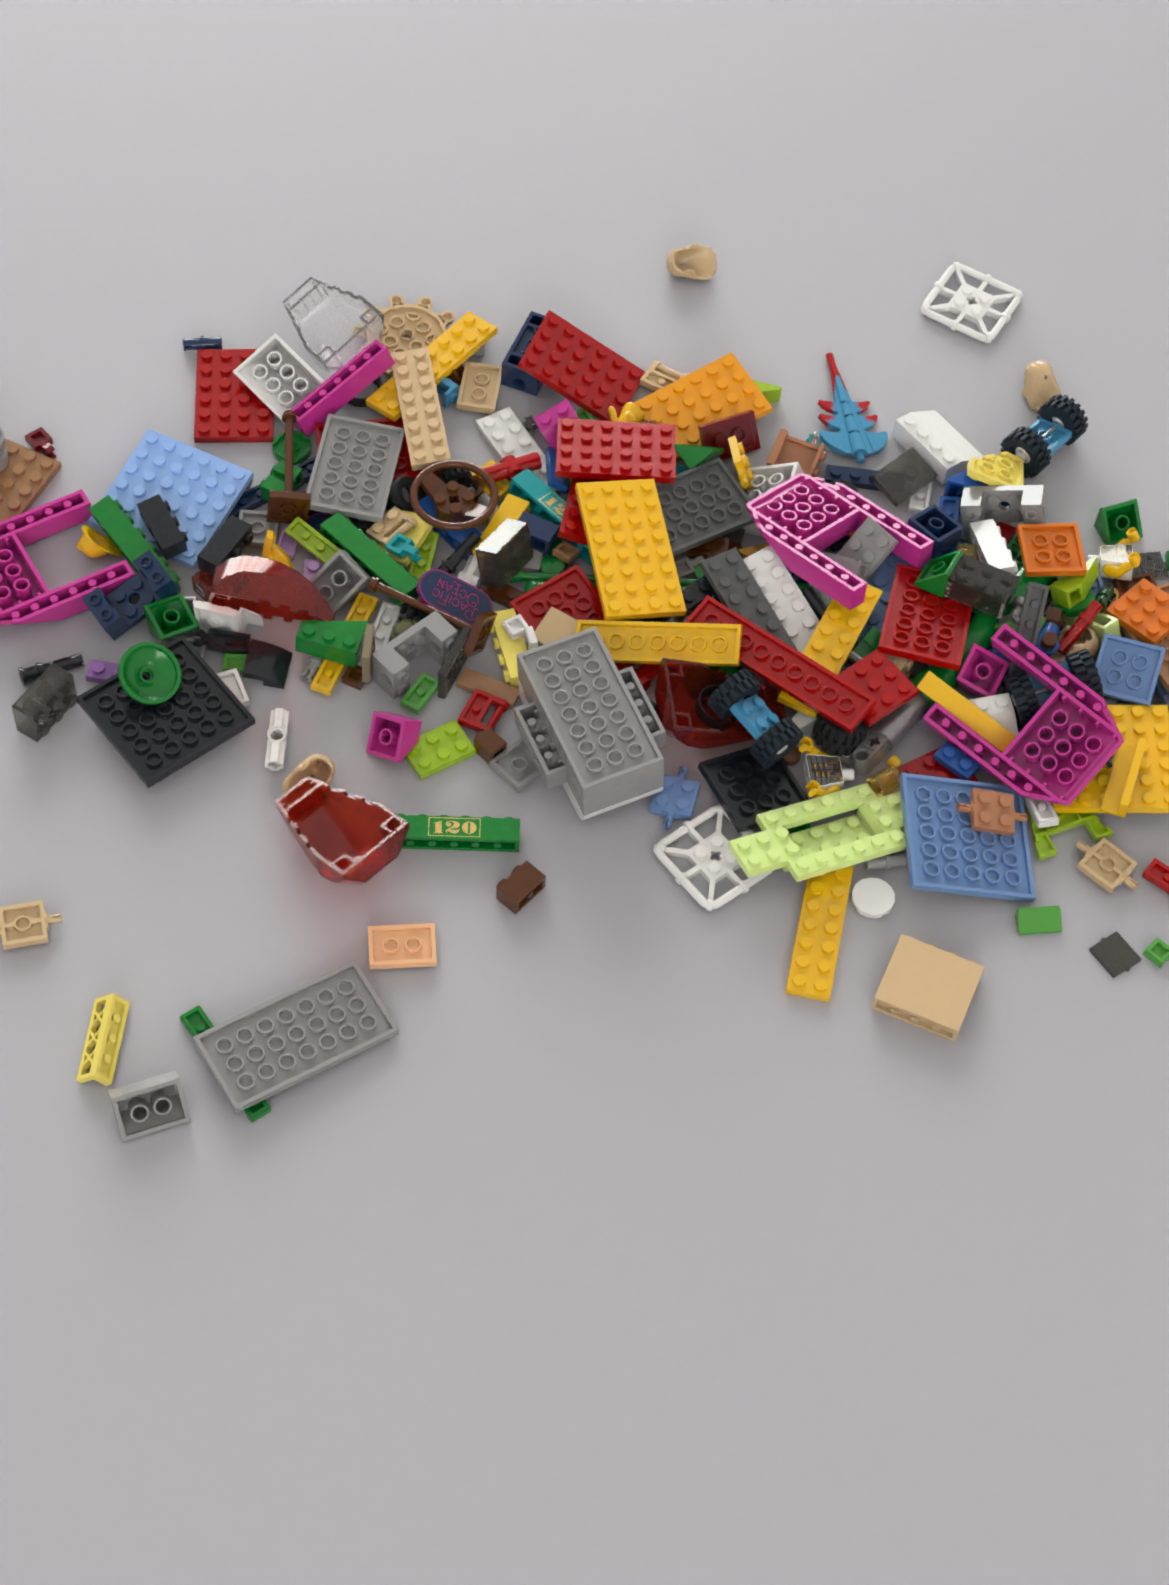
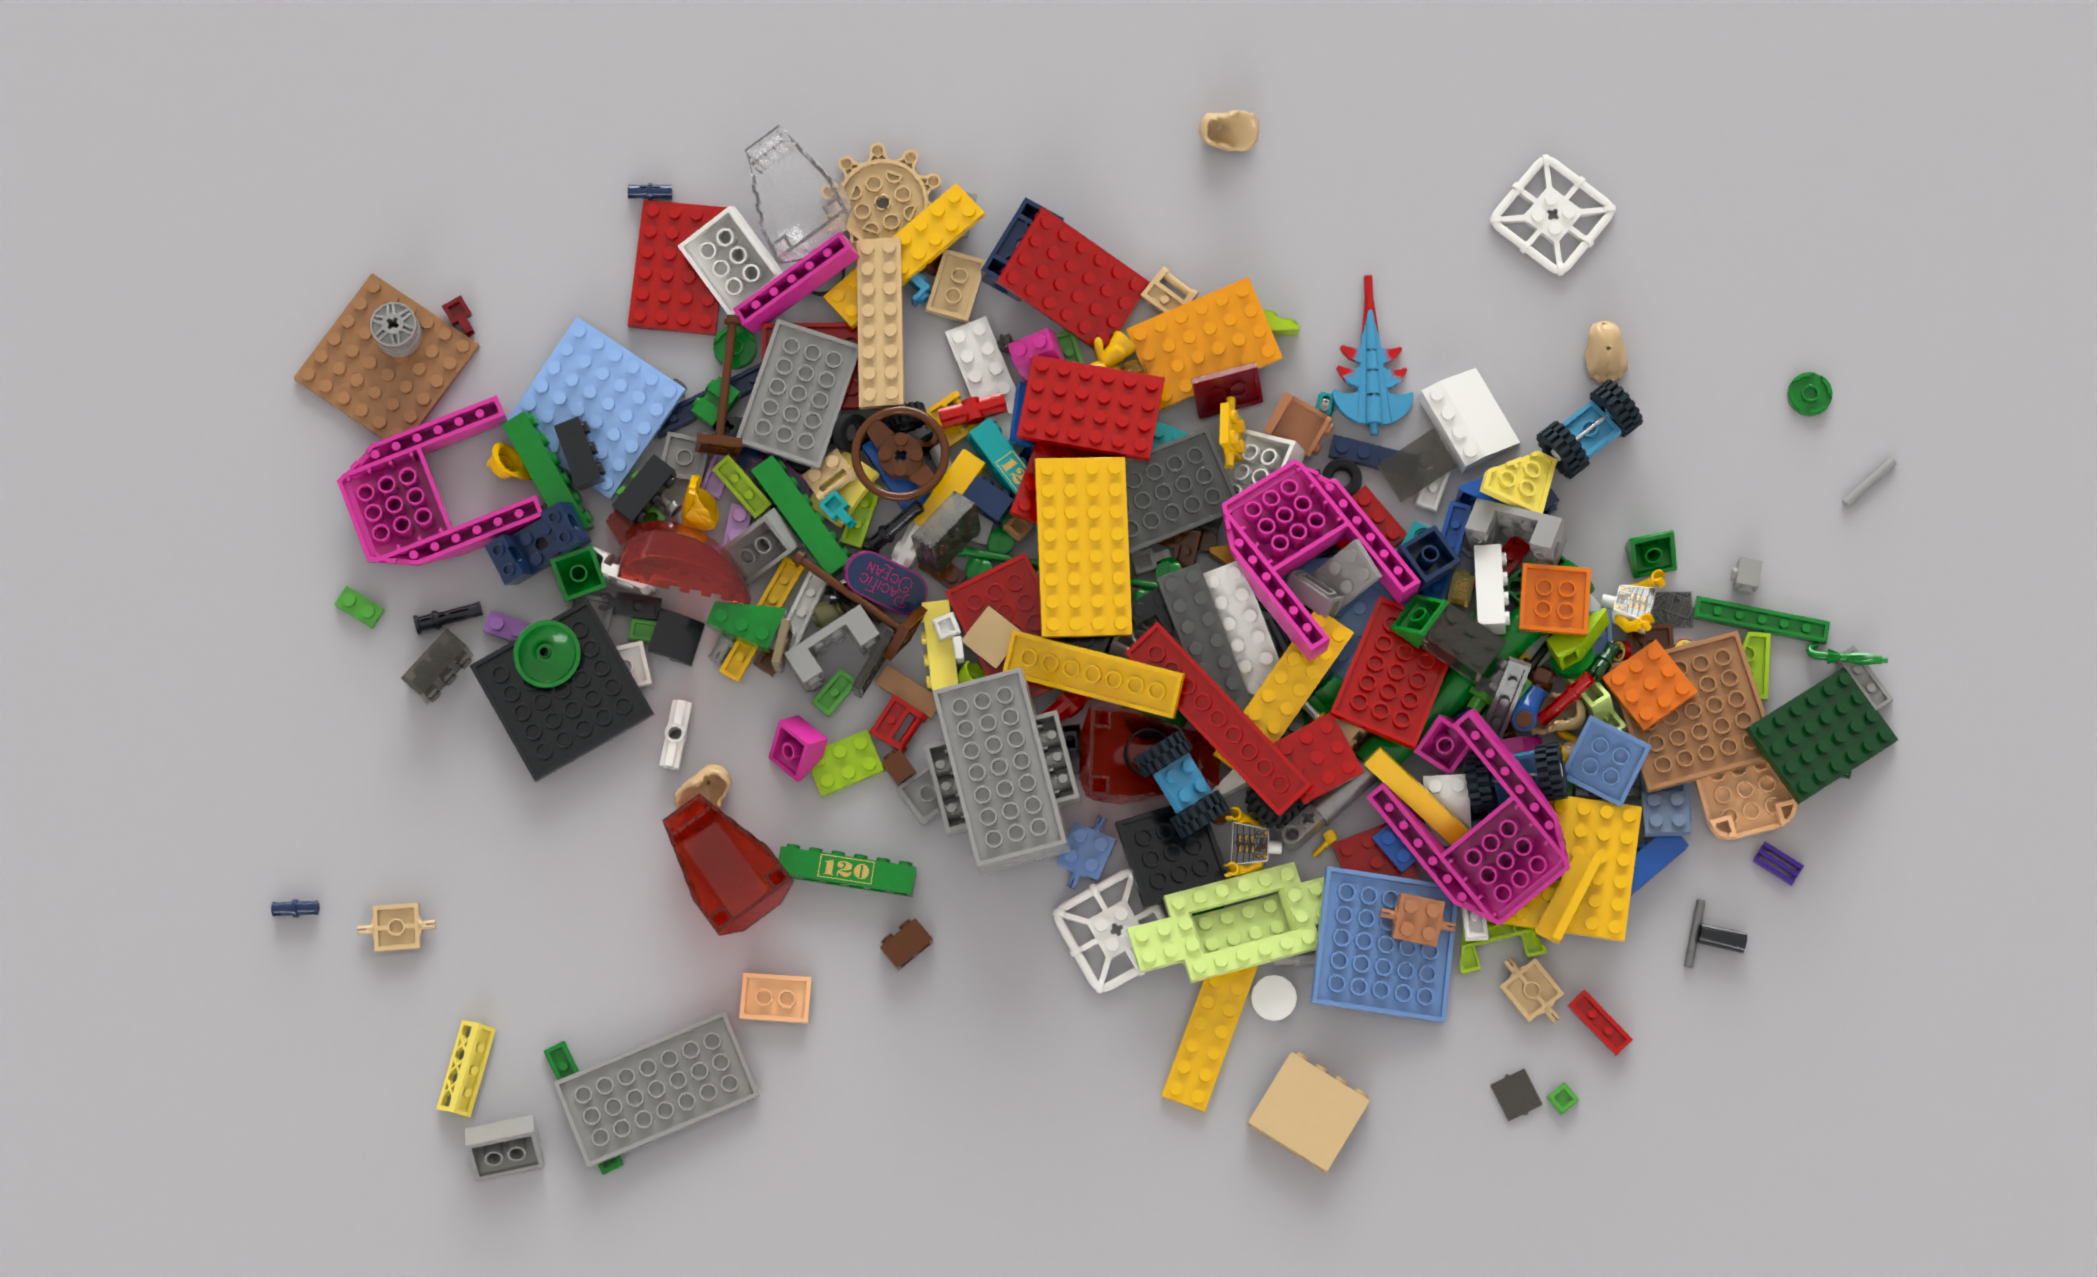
camera: 15 degrees right, 20 degrees up
(697, 455) = (1183, 415): green slope -> none
(884, 780) = (1313, 861): clear yellow brick -> none
(1038, 920) = (1443, 1047): bright green slope -> none

